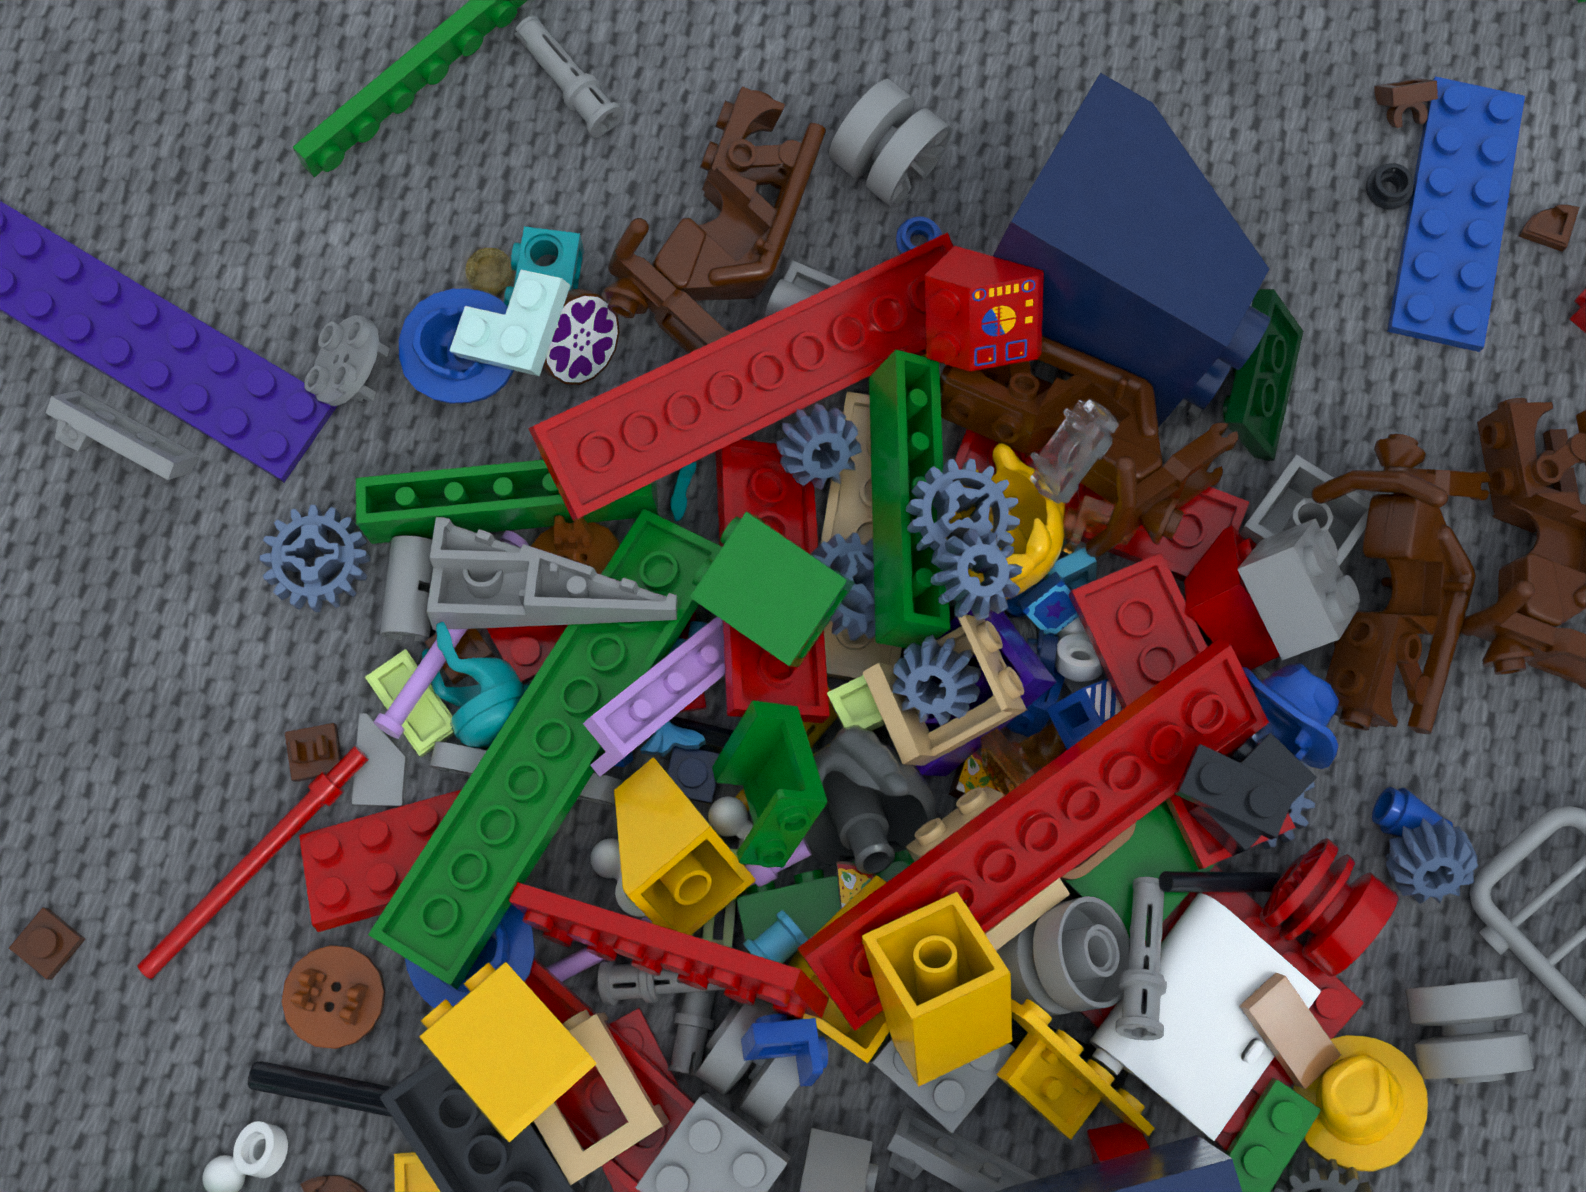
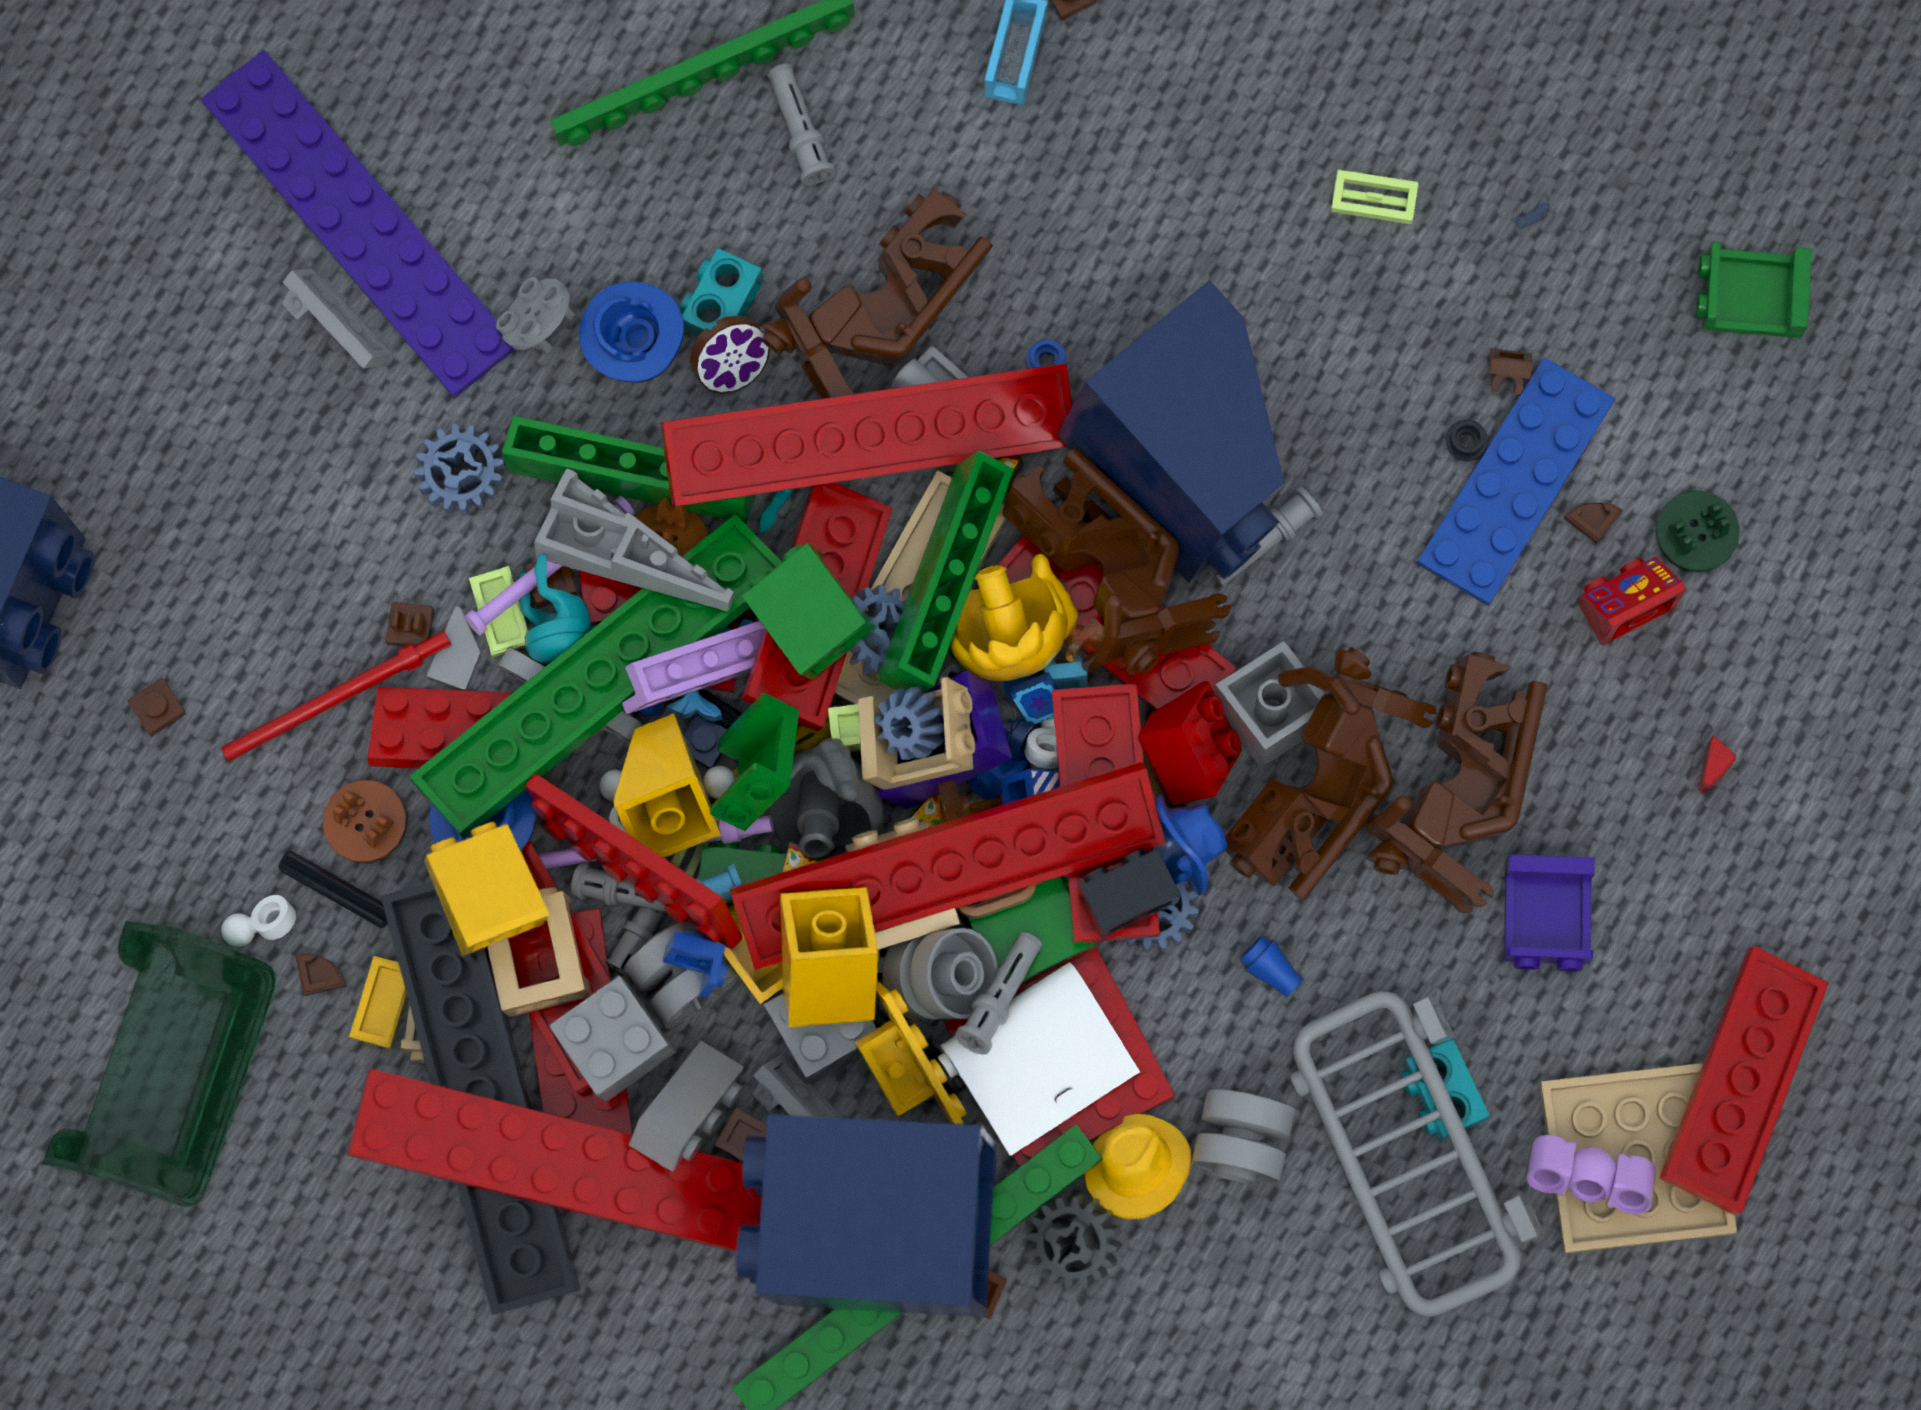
camera: 25 degrees right, 0 degrees up
(407, 589) = (525, 518): light grey pin -> none
(489, 271) = (678, 274): clear yellow tile -> none
(521, 335) = (684, 341): light aqua plate -> none
(807, 434) = (889, 523): sand blue gear -> none
(887, 141) = (1043, 267): light grey wheel -> none
(953, 498) = (971, 582): sand blue gear -> none
(982, 311) = (1054, 442): red slope -> none
(984, 559) = (975, 641): sand blue gear -> none
(1073, 450) = (1087, 577): clear piece -> none
(1217, 881) = (1091, 960): black bar -> none
(1235, 791) = (1109, 883): black plate -> none
(1265, 380) = (1286, 567): dark green plate -> none
(1290, 1030) = (1100, 1090): tile -> none
(1300, 588) = (1229, 746): light grey brick -> none
(1338, 915) = (1167, 1006): red wheel -> none
(1431, 860) = (1268, 1001): sand blue gear -> none

